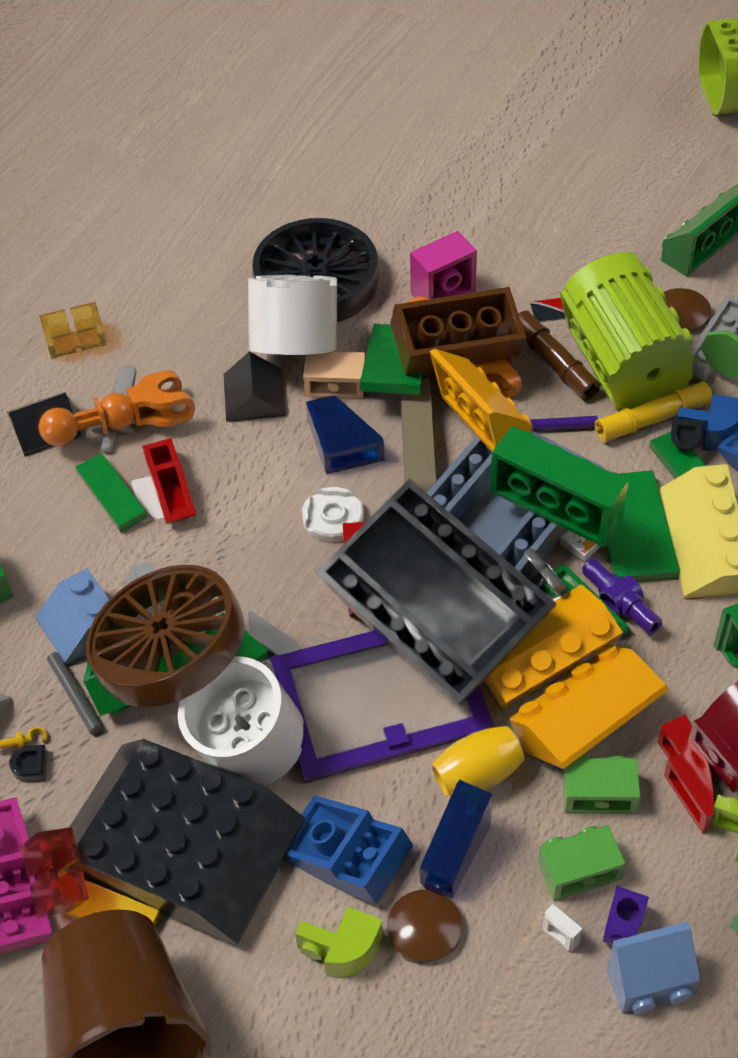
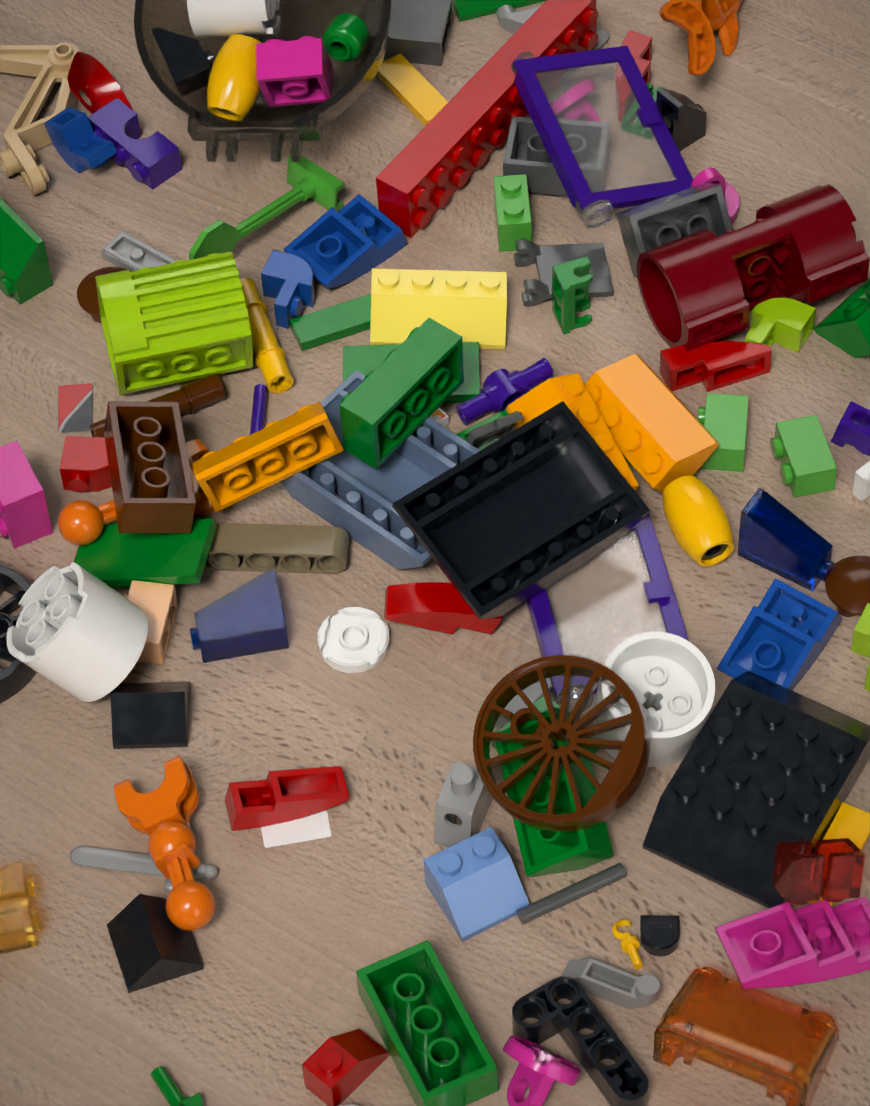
camera: 85 degrees left, 0 degrees up
(111, 492) = (285, 863): green tile -> none
(687, 433) = (309, 303): black tile -> none

